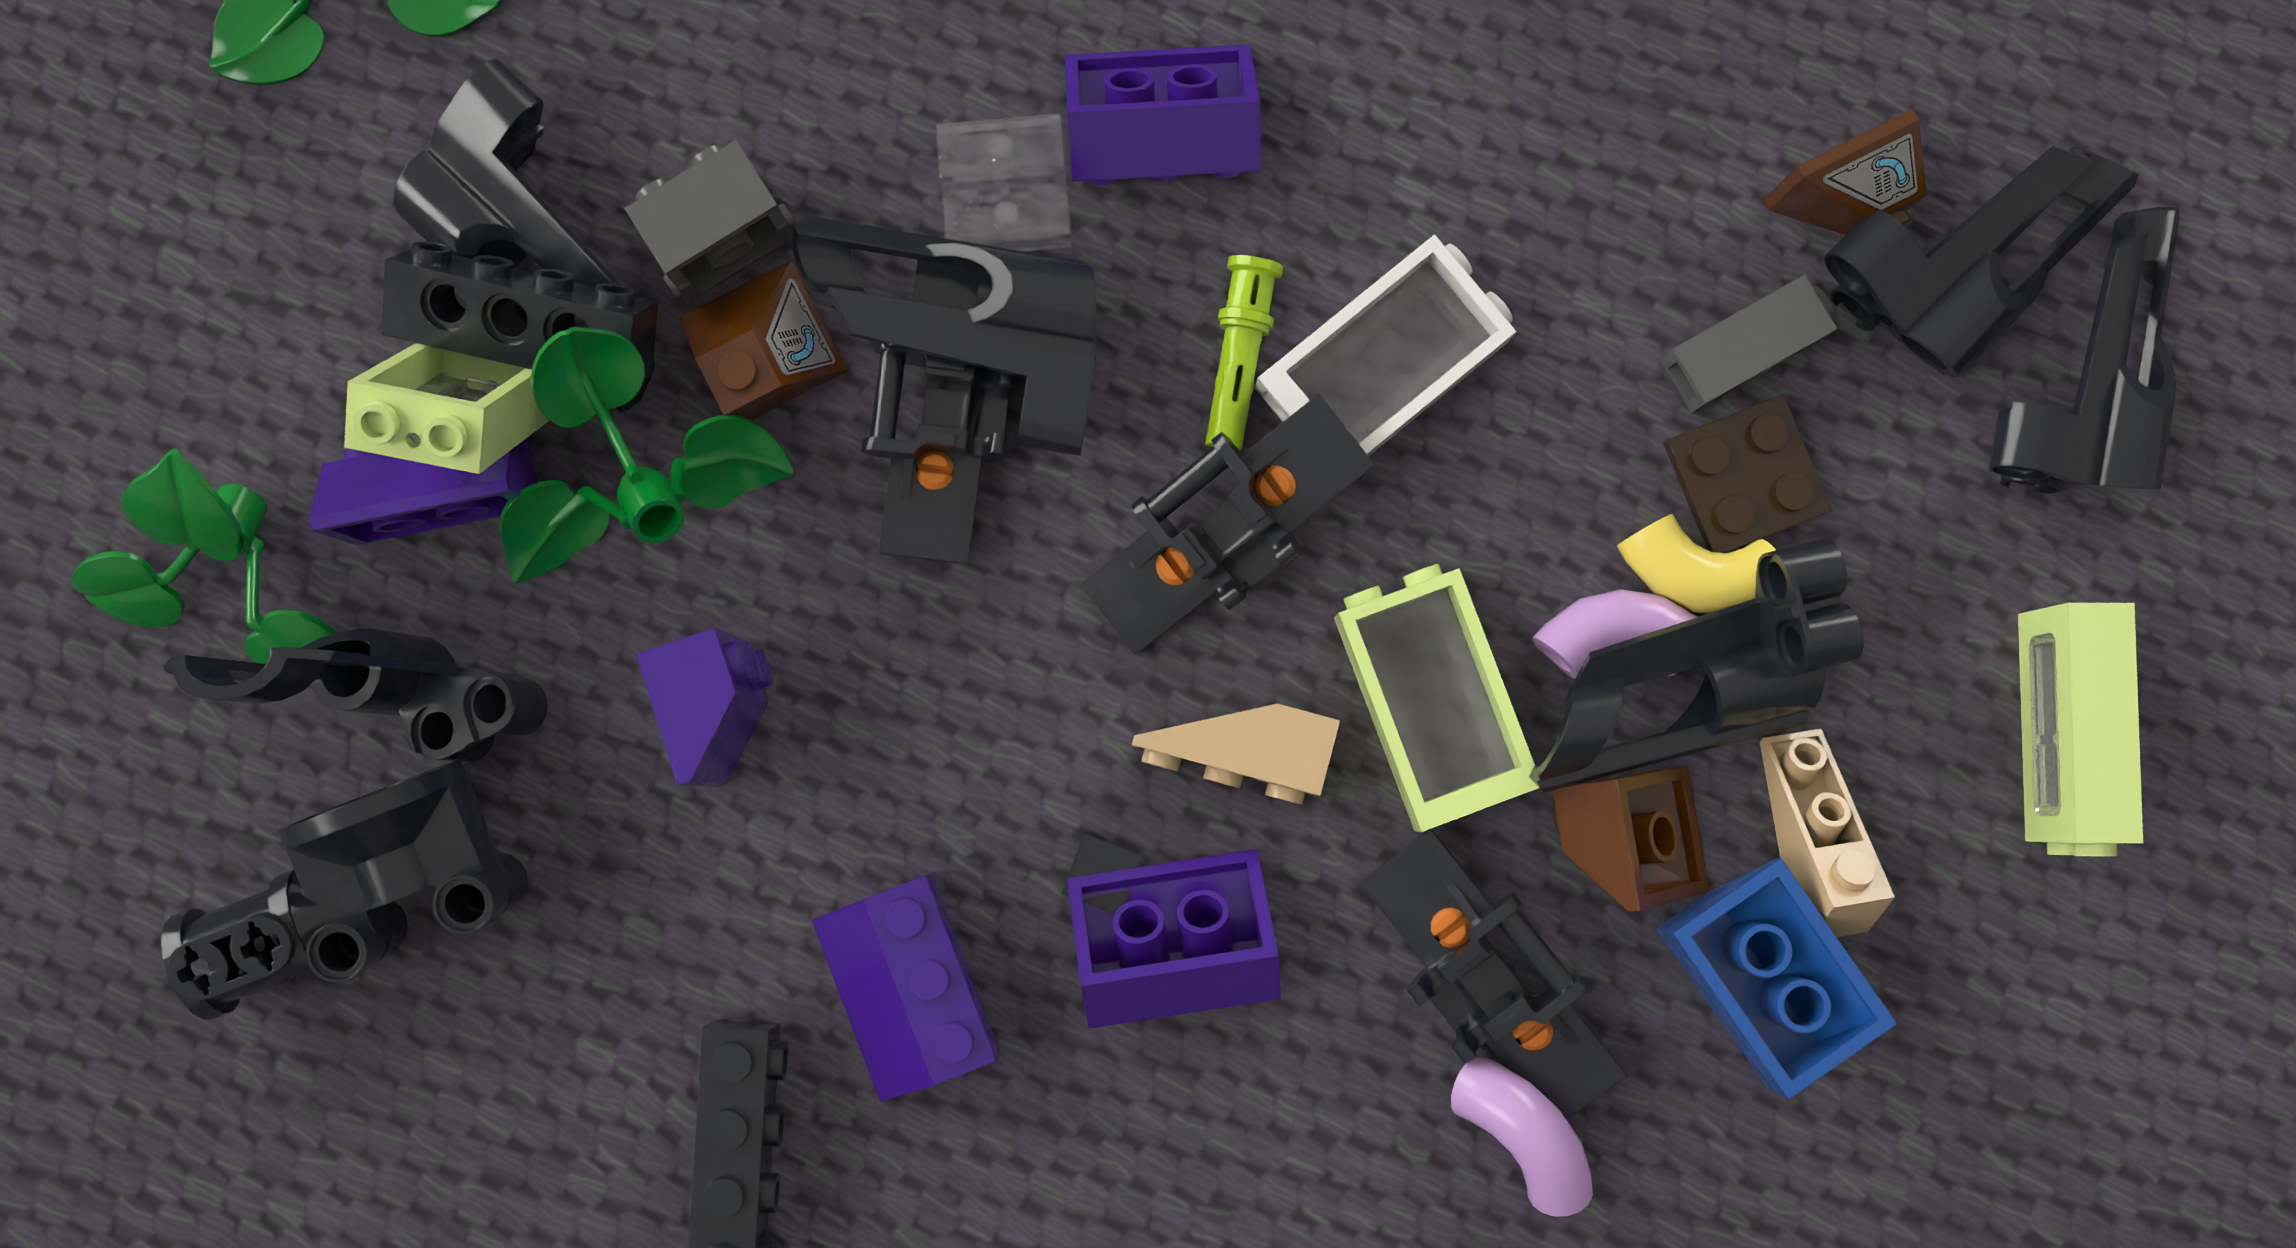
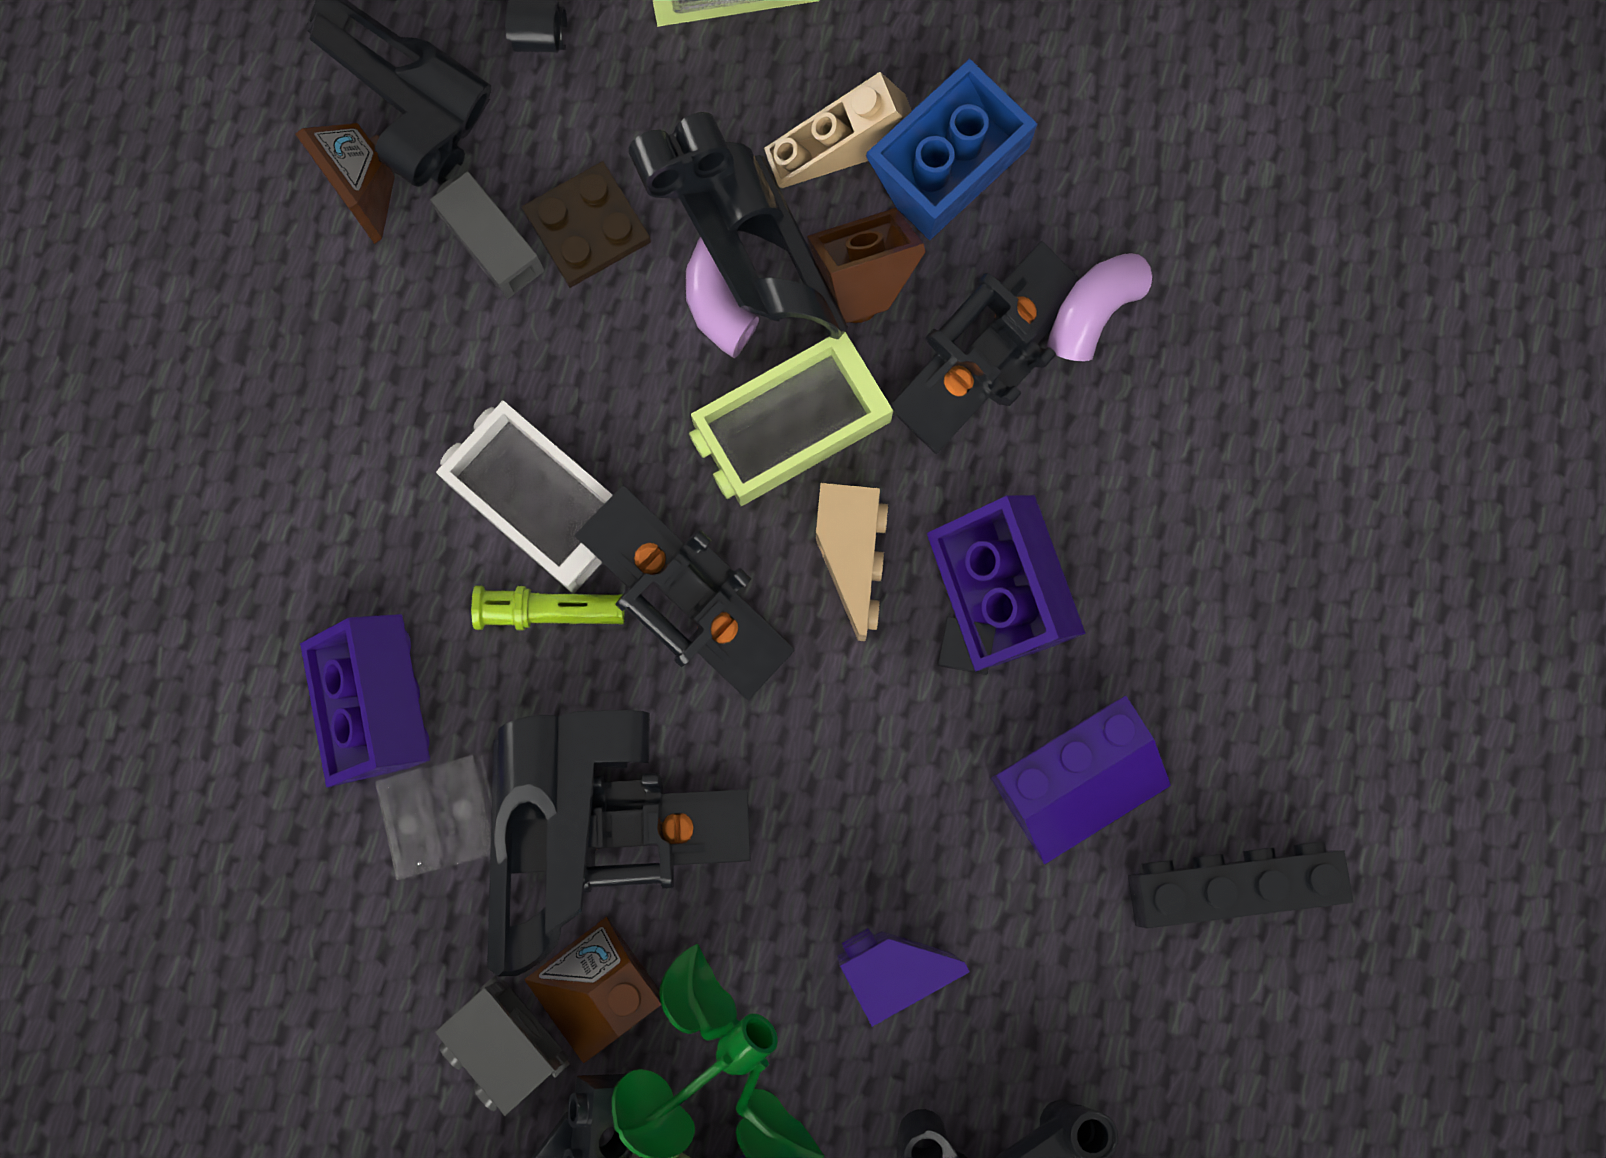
camera: 95 degrees left, 5 degrees down
(1688, 573) = (667, 248): light yellow cylinder -> none

